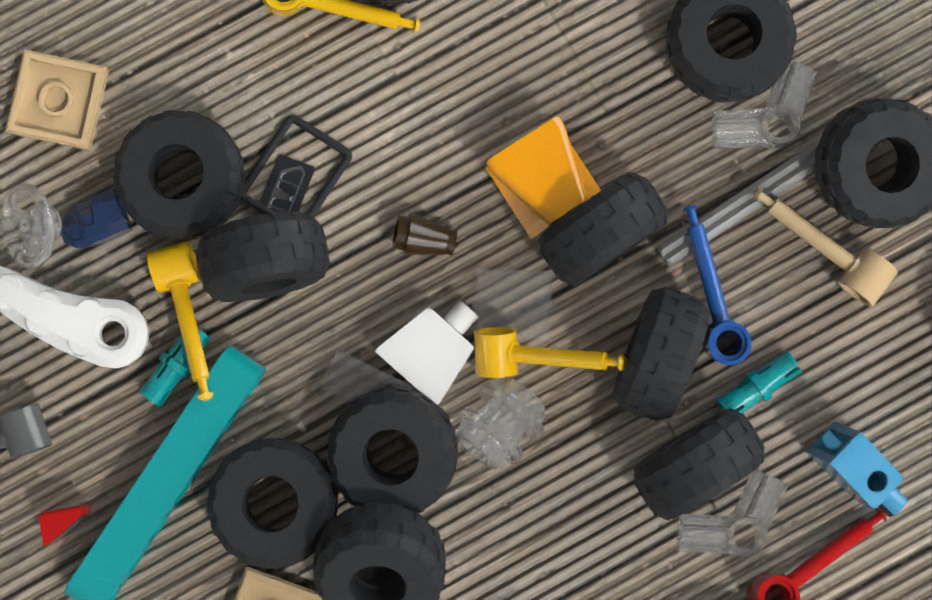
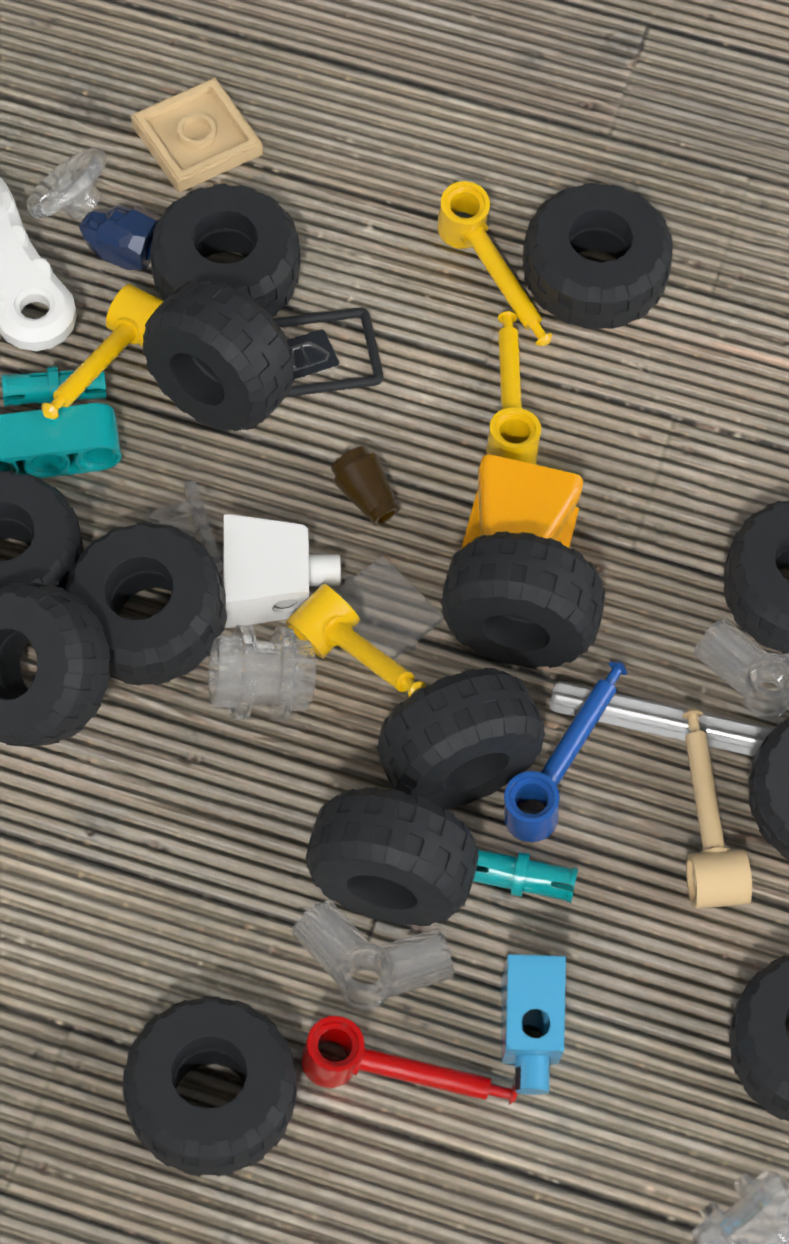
camera: 40 degrees right, 25 degrees down
(461, 106) = (512, 430): none -> yellow piece

